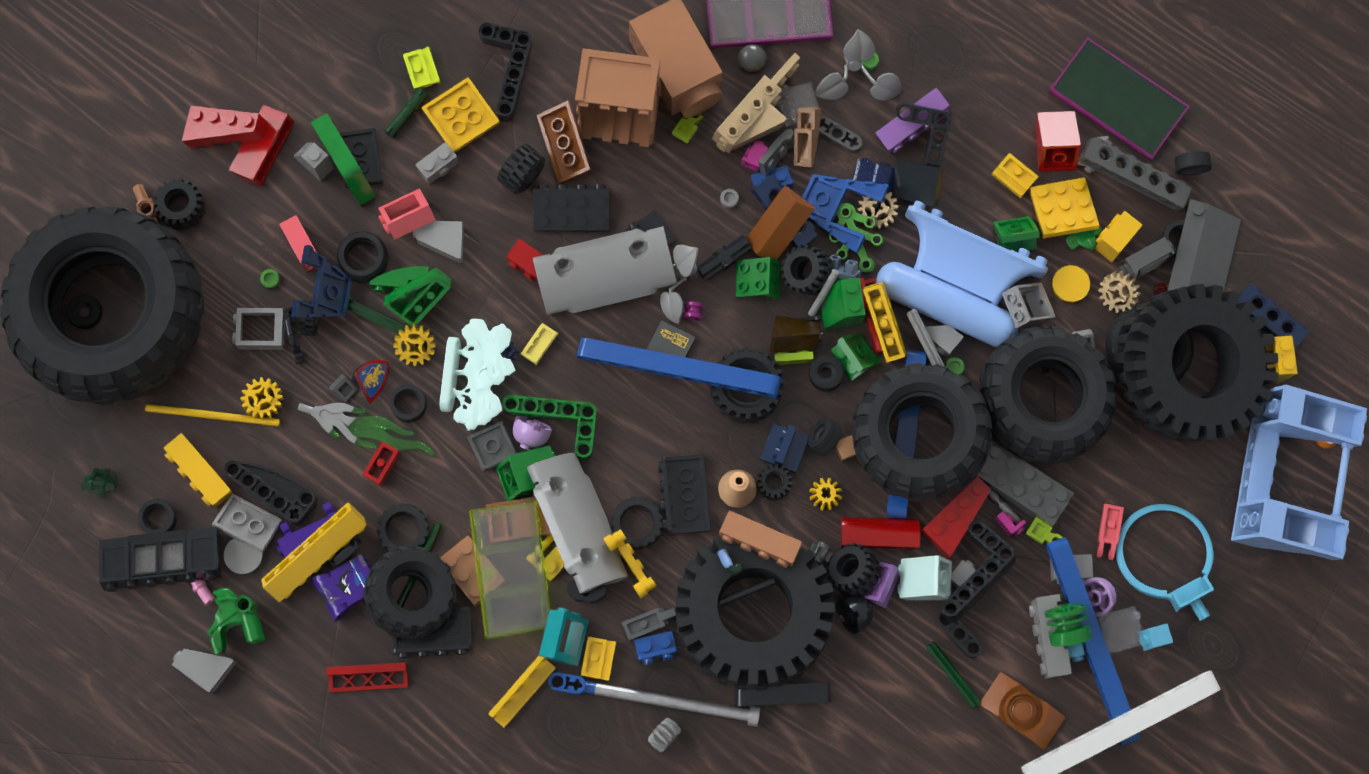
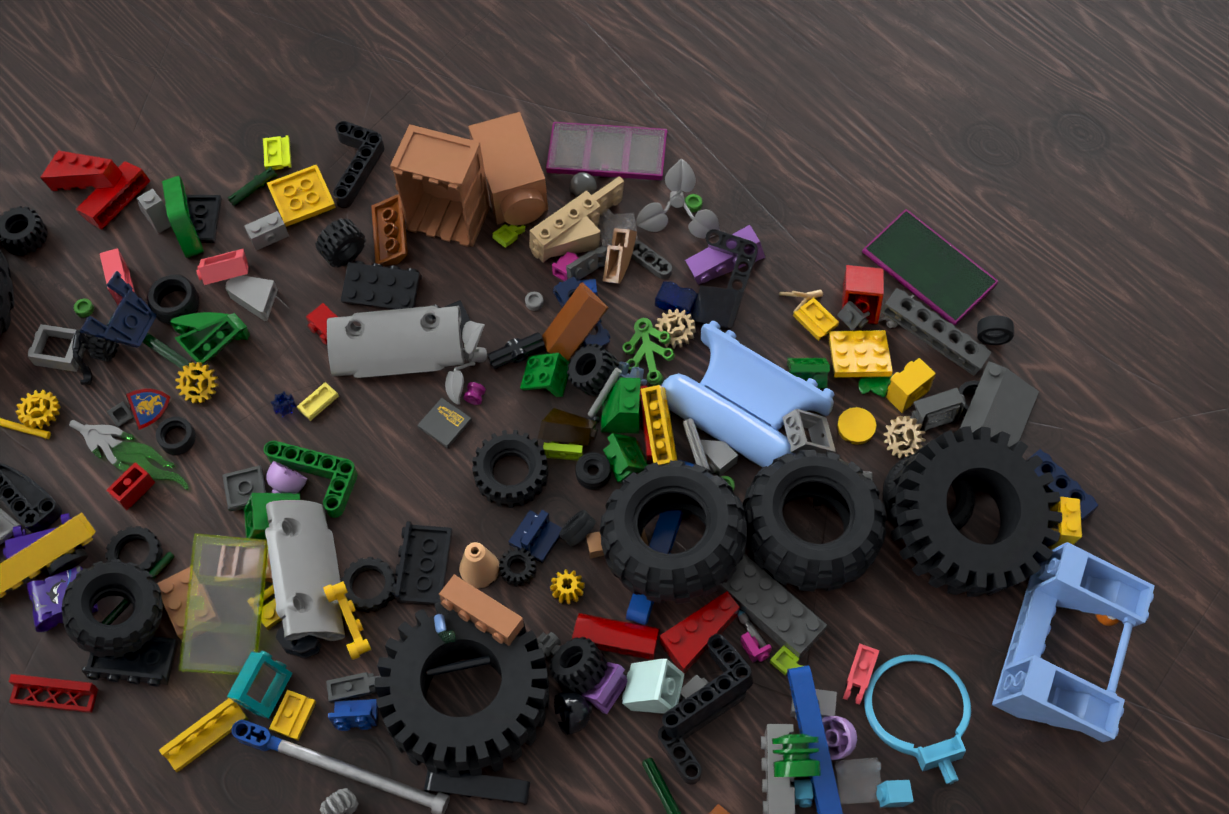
camera: 15 degrees right, 15 degrees down
(483, 370) = (256, 413): light aqua plant -> none
(679, 367) = (446, 439): blue beam -> none
(827, 195) = (626, 310): blue wing -> none
(1001, 151) = (807, 296): none -> tan plant
(1052, 169) = (853, 316): none -> dark grey bracket

